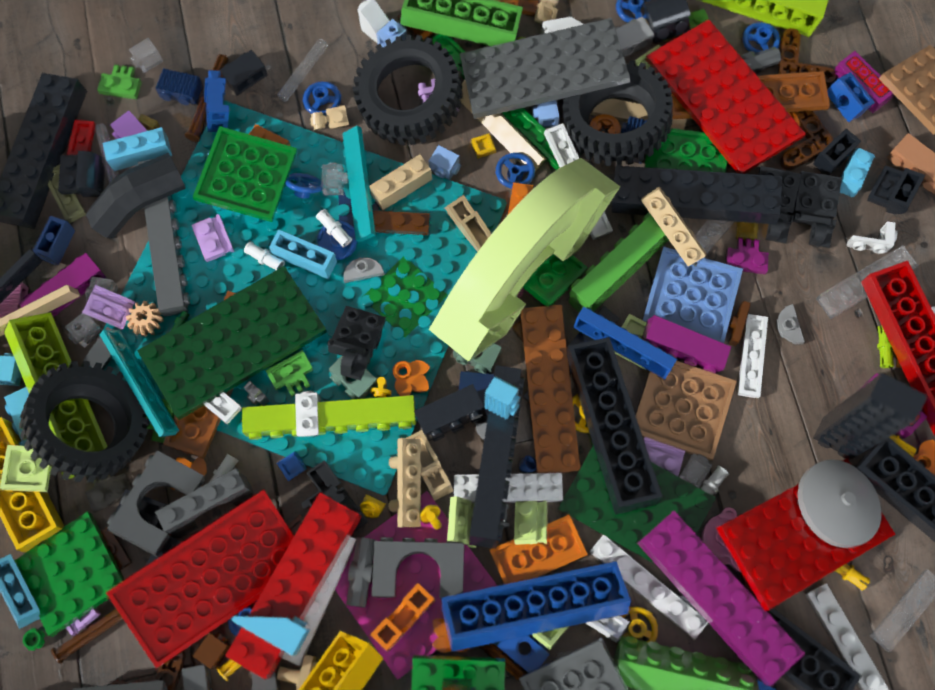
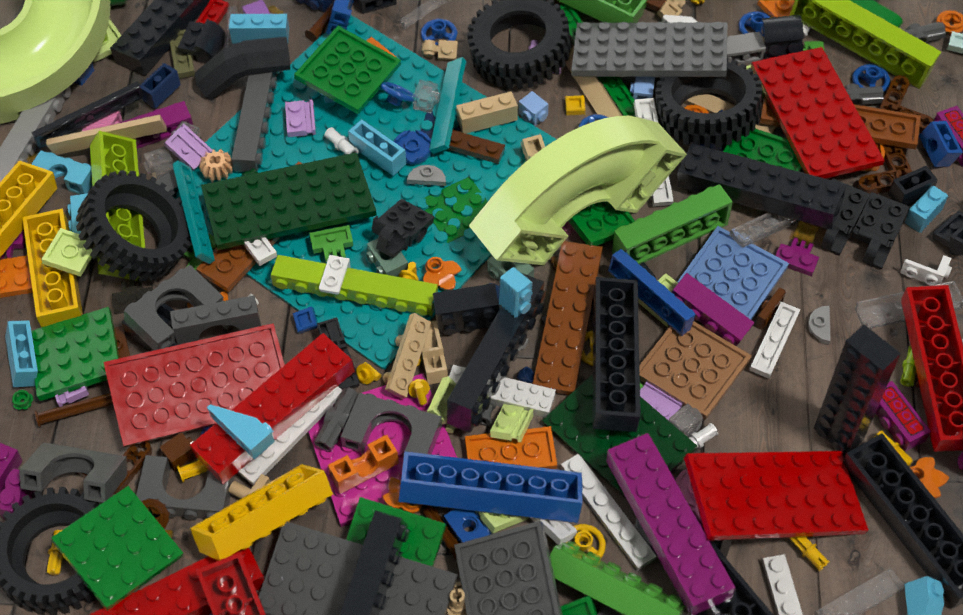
camera: 15 degrees right, 15 degrees down
(255, 394) = (293, 249): flat silver plate -> none
(334, 228) = (412, 133): white pin -> none
(673, 226) = (727, 200): tan plate -> none
(839, 503) = (816, 479): light grey dish -> none

